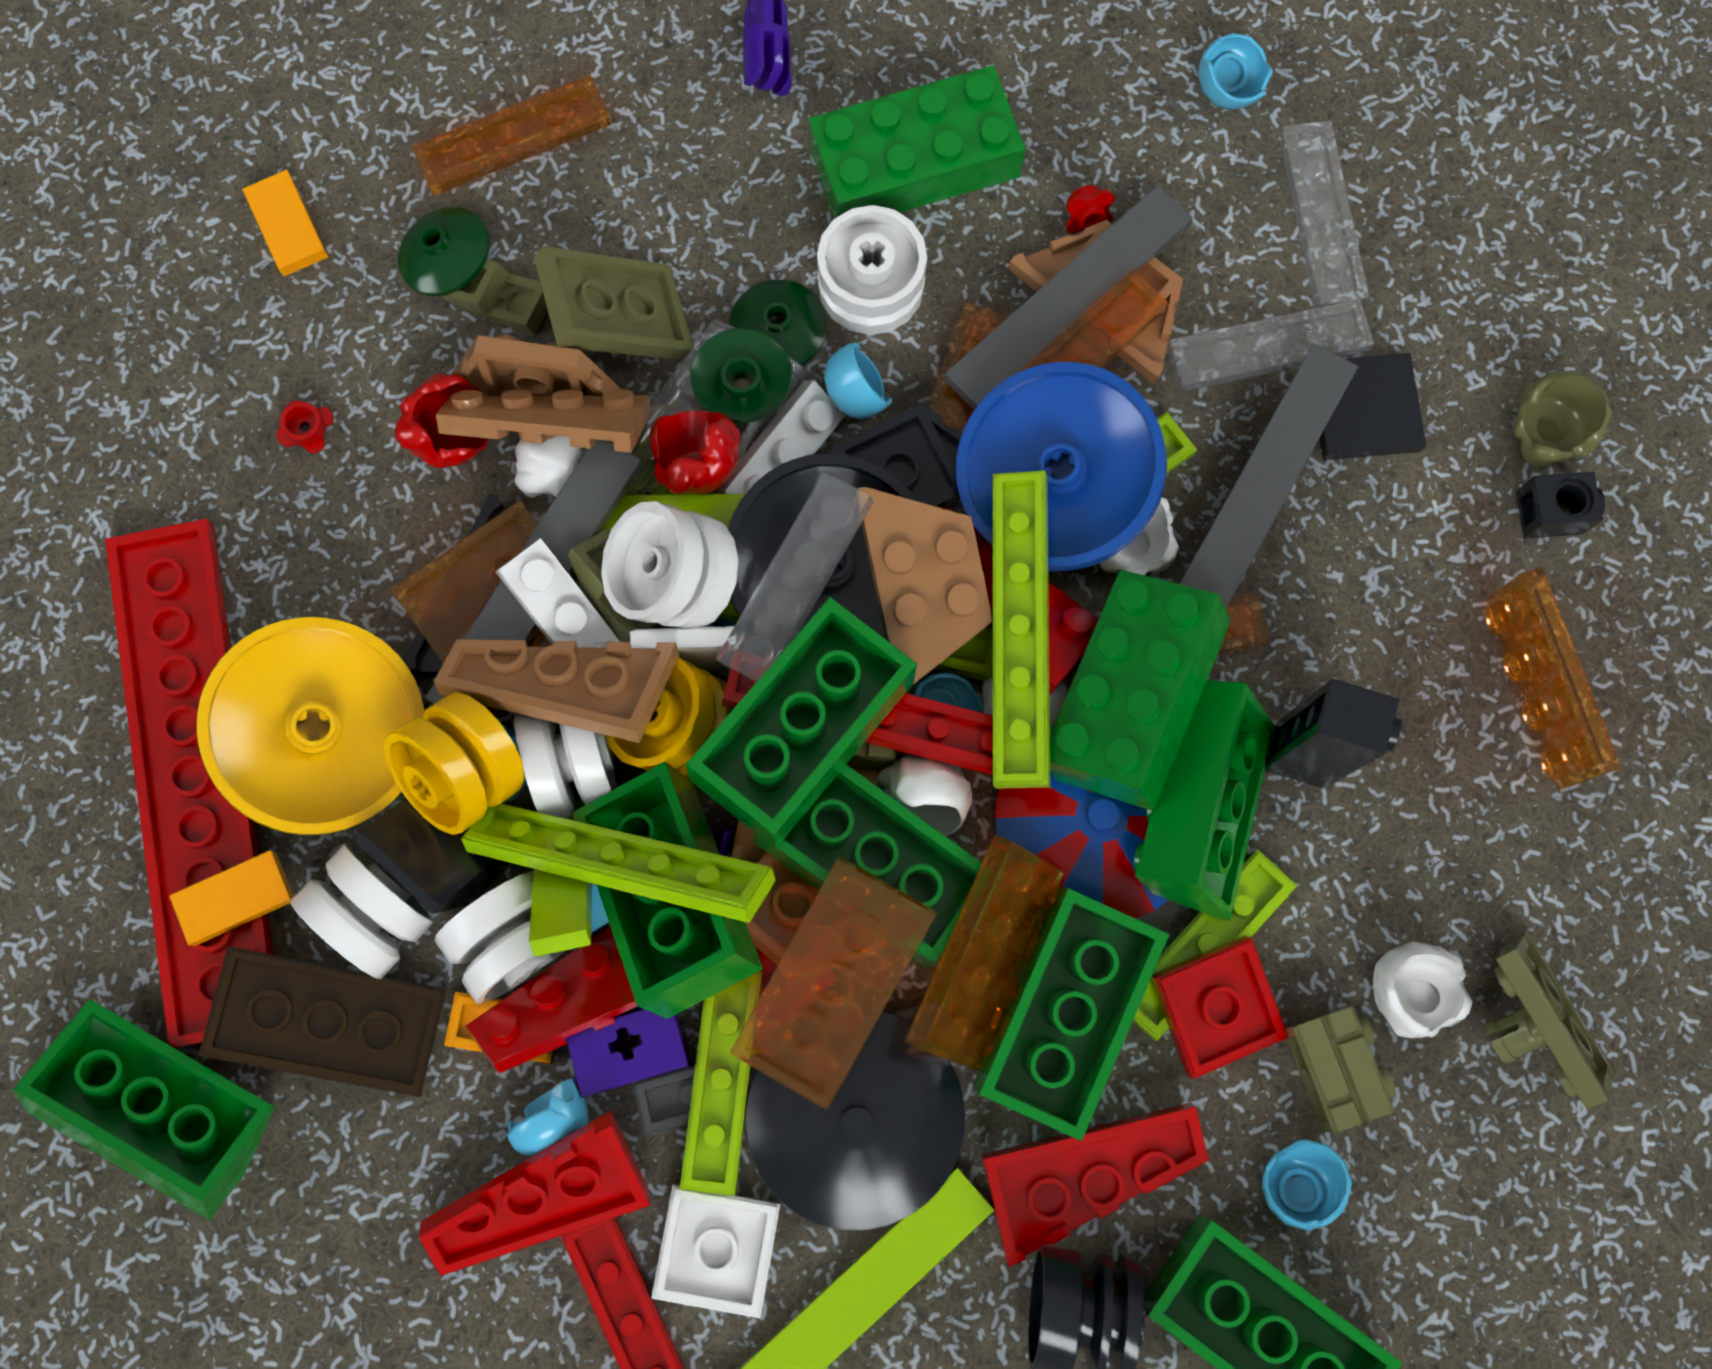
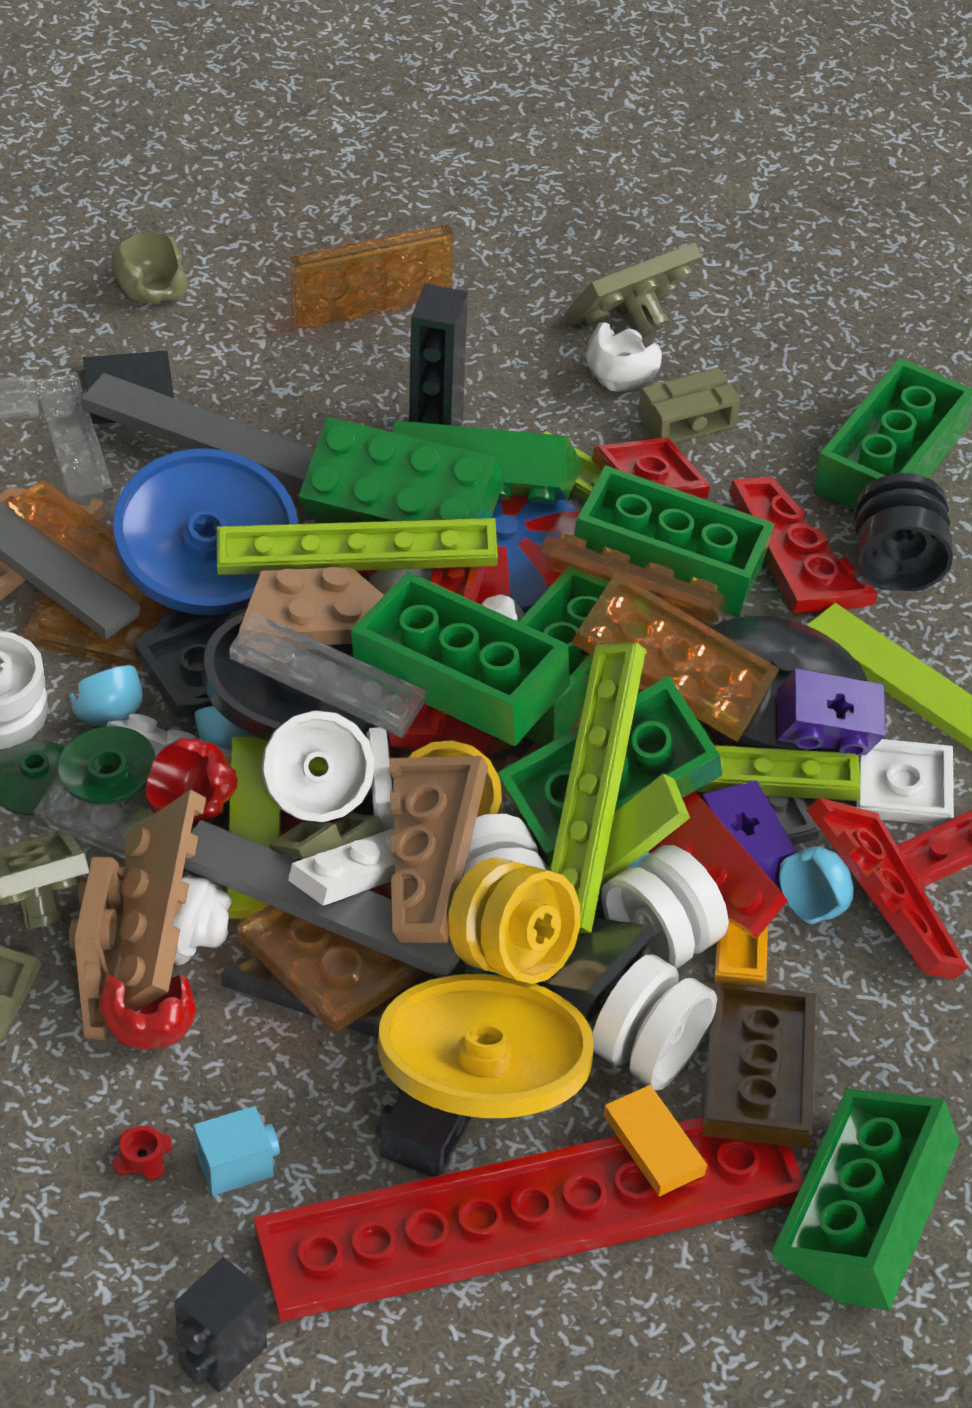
camera: 95 degrees left, 30 degrees down
(74, 481) = (220, 1325): none -> black brick
(285, 504) = (235, 1150): none -> medium azure brick
(784, 1140) = (830, 712): none -> brick
(1318, 1191) = (780, 421): medium azure hair -> none
(1543, 516) = (220, 277): black brick -> none

